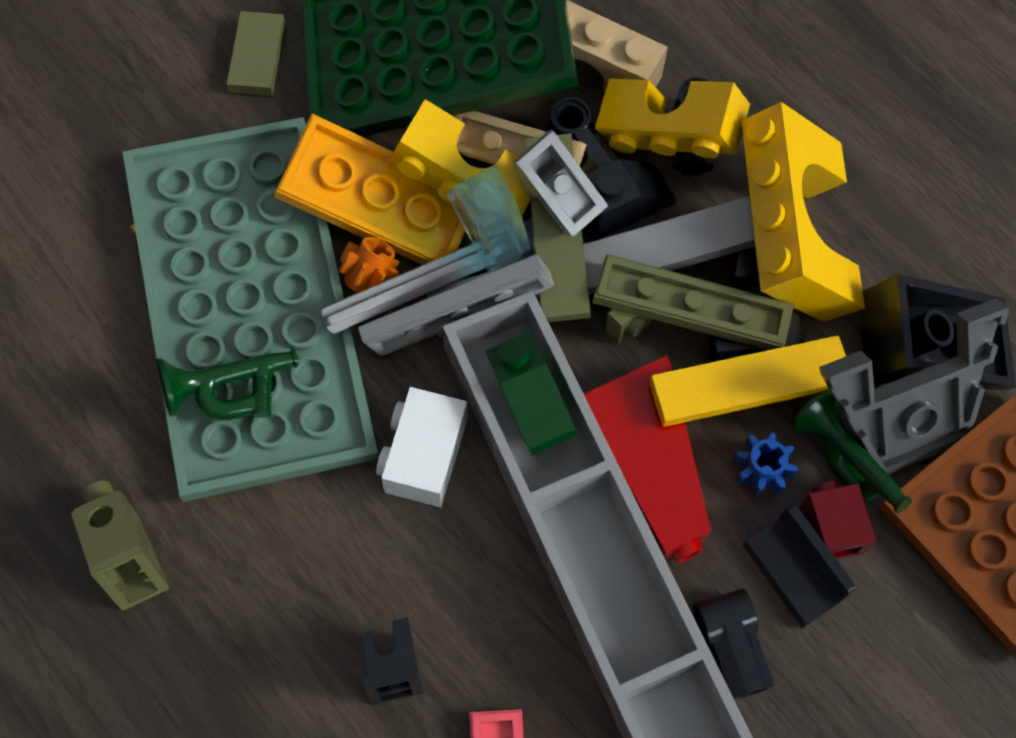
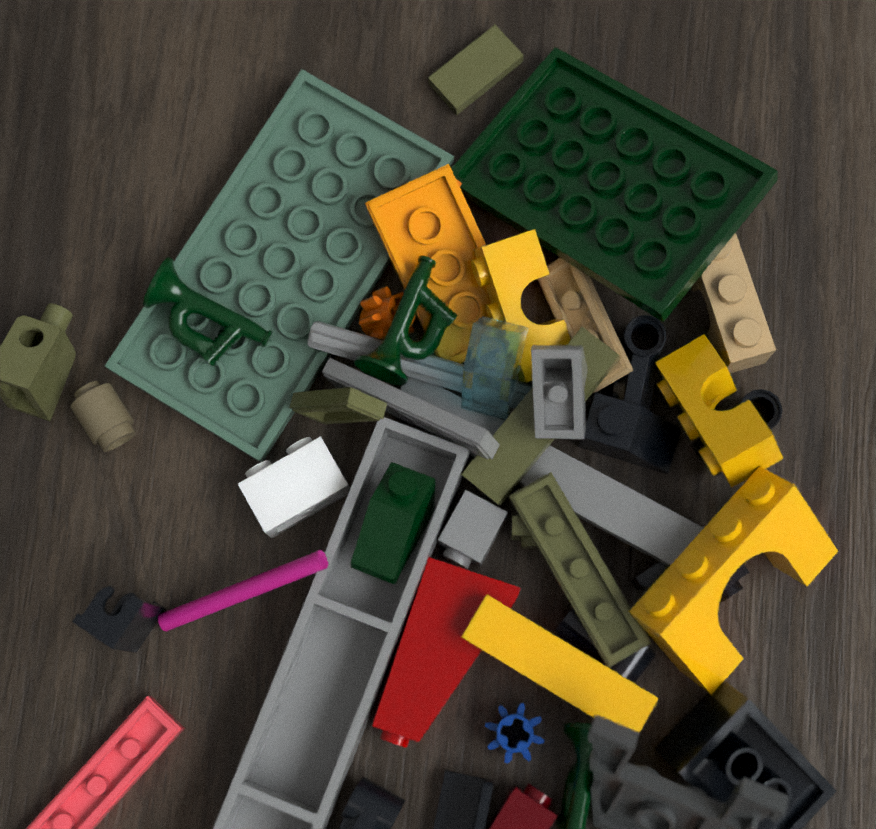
camera: 55 degrees right, 10 degrees up
(214, 537) = (103, 415): none -> dark tan brick
(401, 351) = (338, 406): none -> olive tile
(405, 284) = (385, 360): none -> dark green piece
(466, 554) = (243, 590): none -> dark pink bar
(589, 351) = (471, 530): none -> light grey brick

